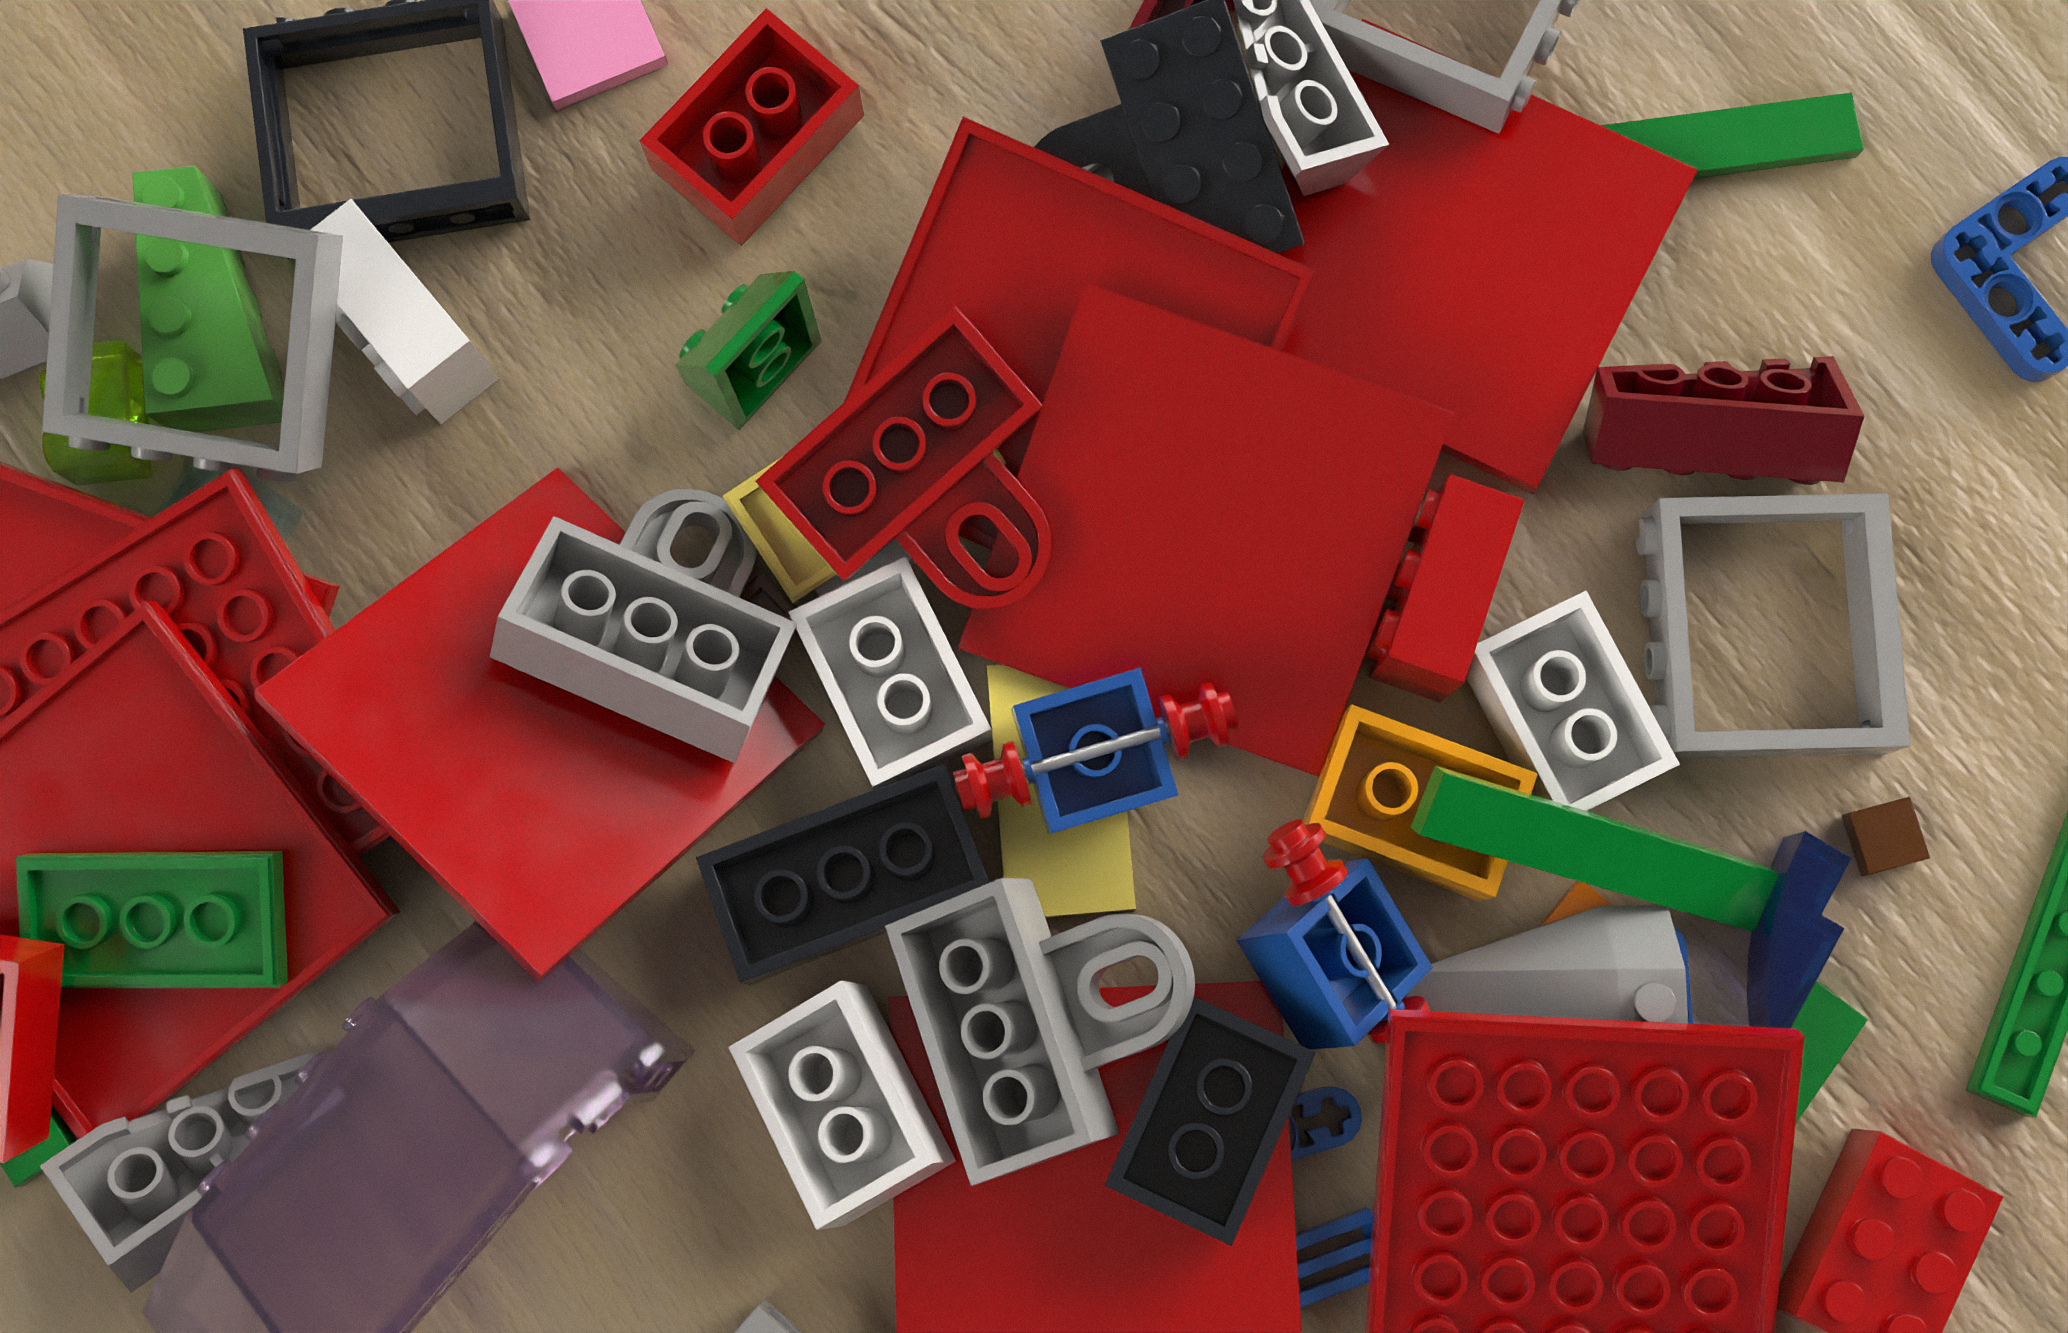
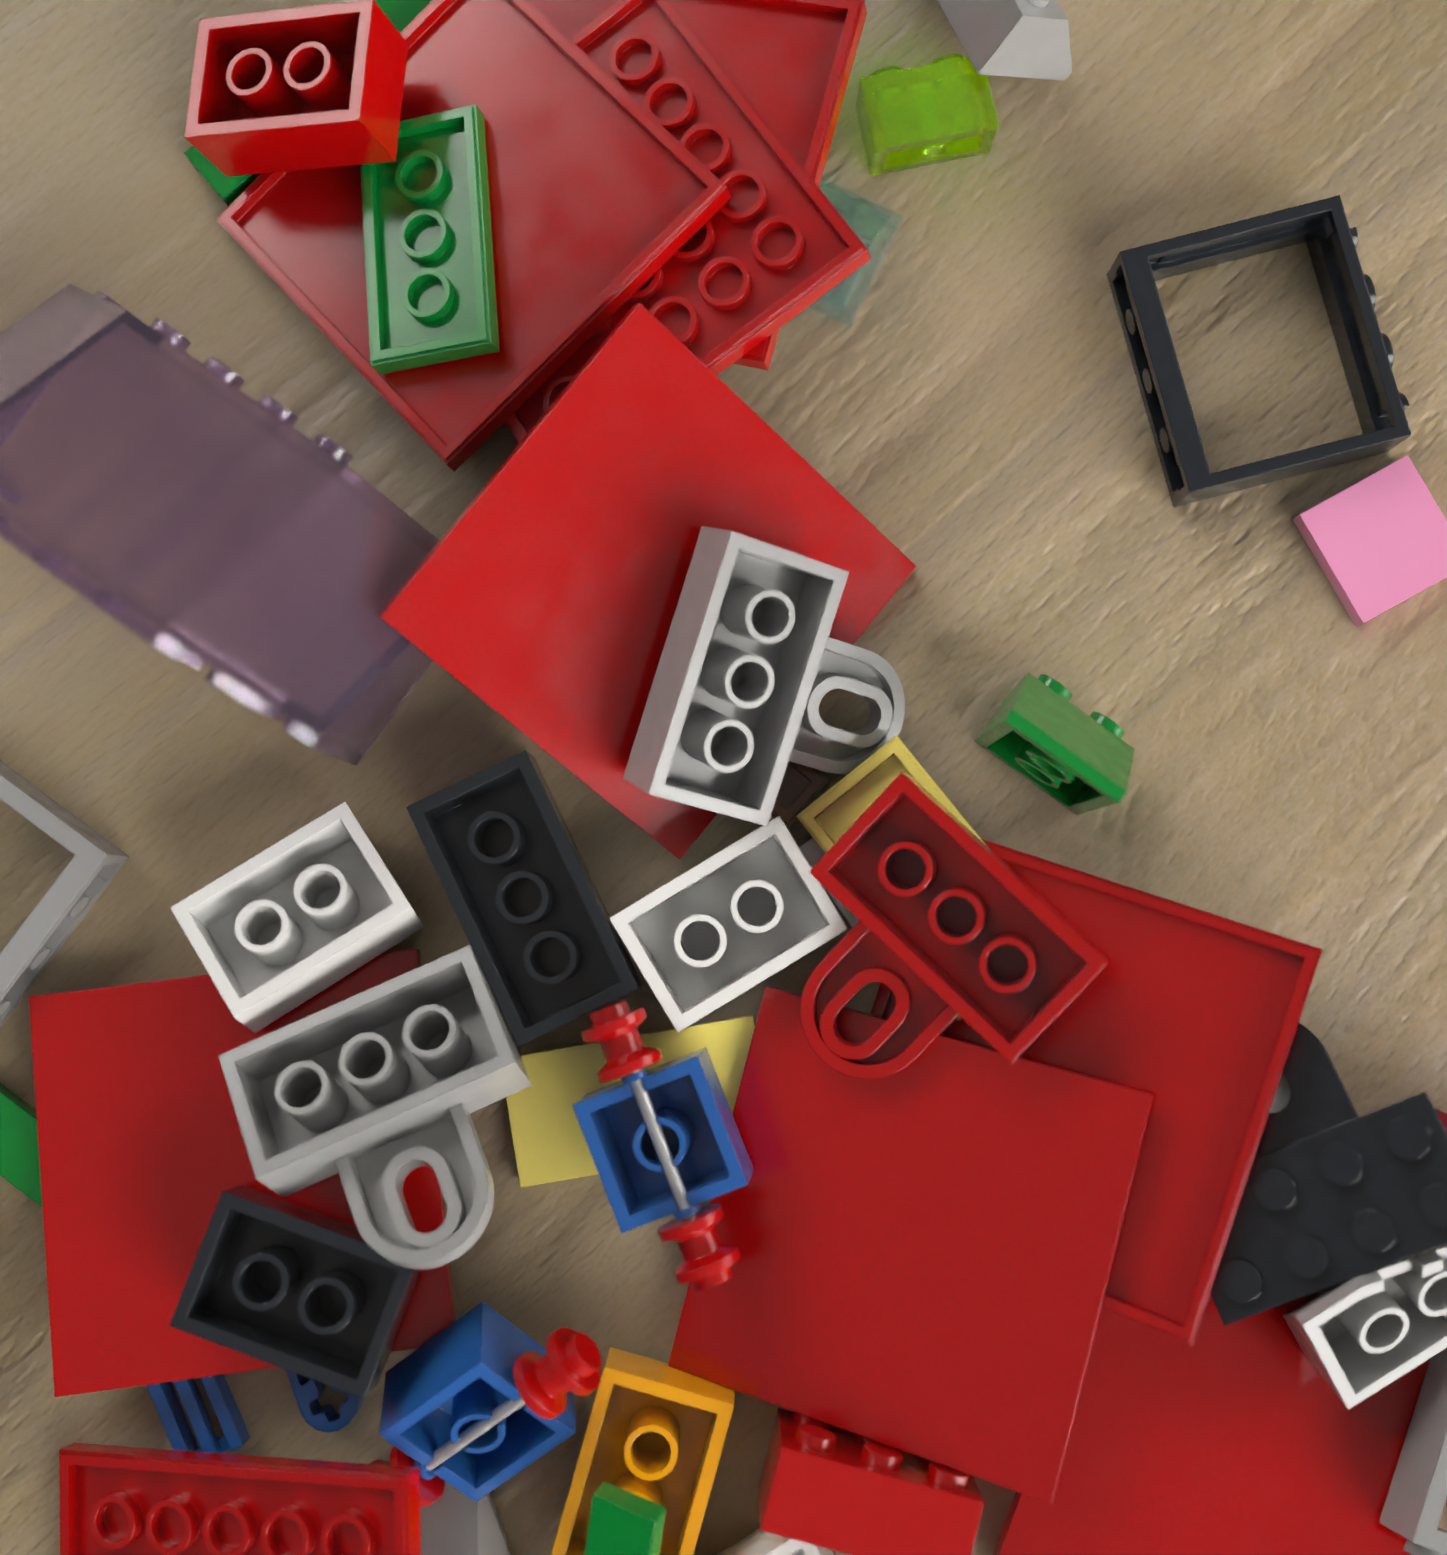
camera: 90 degrees right, 5 degrees up
(73, 320) = (996, 73): light grey window -> none
(142, 1175) = (195, 272): light grey wedge -> none
(200, 320) = (1039, 193): bright green wedge -> none
(401, 323) = (1052, 382): white brick -> none
(753, 126) = (1296, 724): red brick -> none

